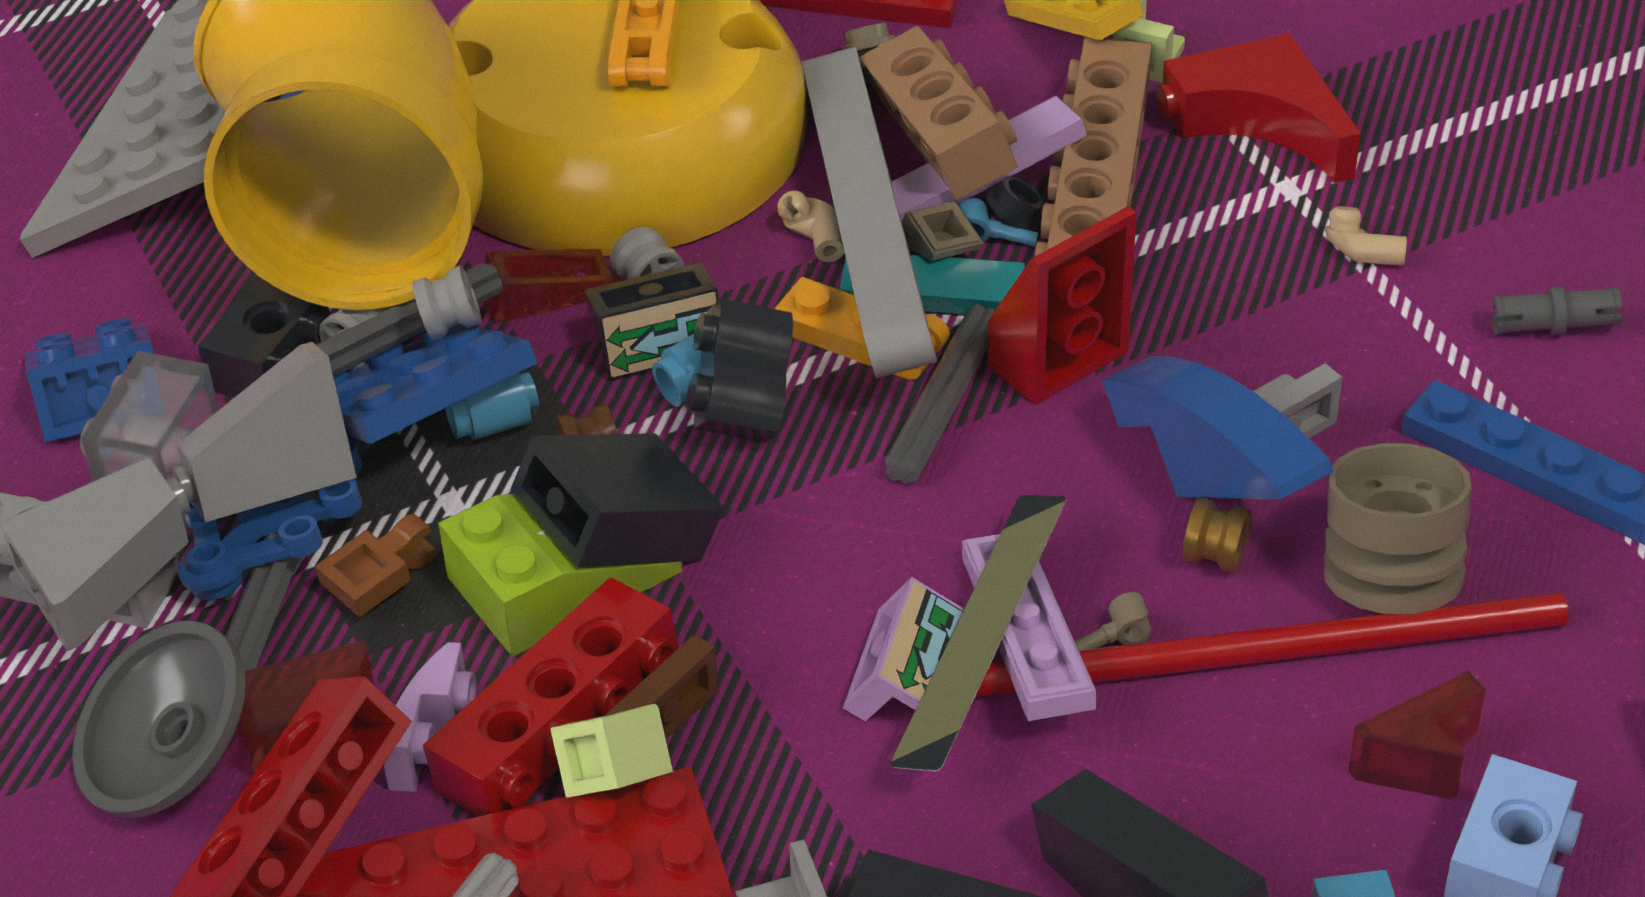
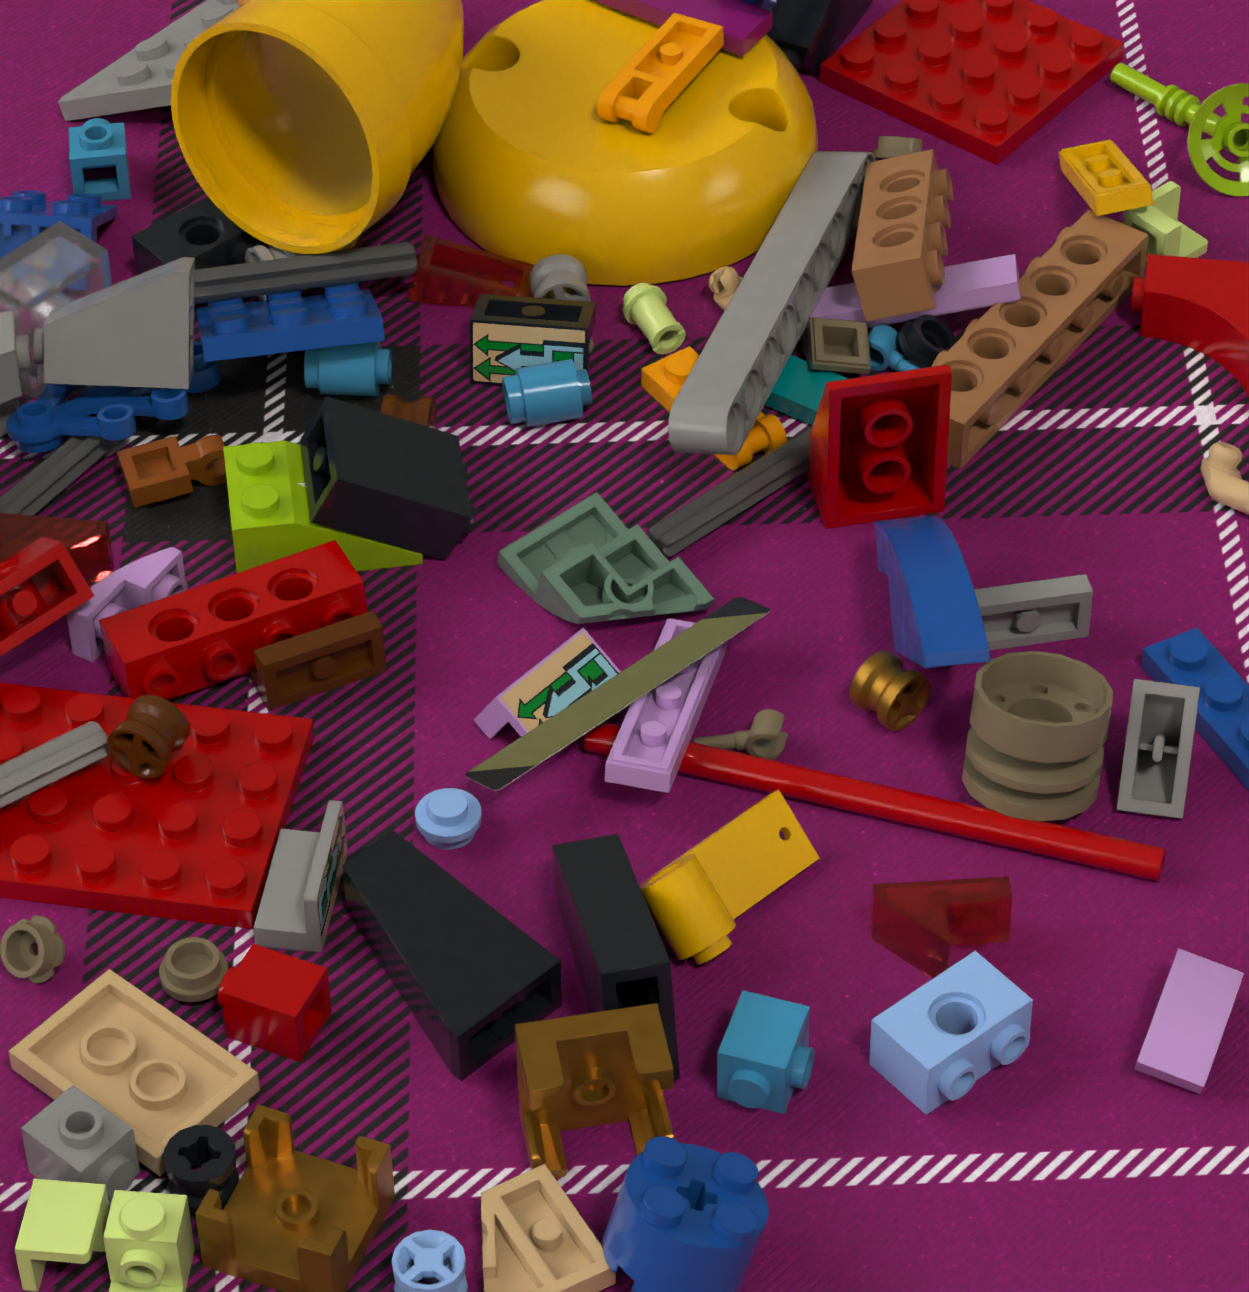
camera: 25 degrees right, 0 degrees up
(97, 269) = (100, 146): none -> dark azure brick
(446, 302) = (341, 263): light grey wheel -> none
(558, 847) = (148, 736): none -> reddish brown wheel
(611, 750) = (246, 678): yellowish green panel -> none
(736, 254) = (648, 310): none -> yellowish green pin
(741, 370) = (564, 406): black brick -> none
(864, 520) = (598, 569): none -> sand green slope
(889, 815) = (448, 818): none -> light blue plate
(1201, 765) = (725, 876): none -> yellow door
(1502, 510) = (1158, 748): none -> light grey slope

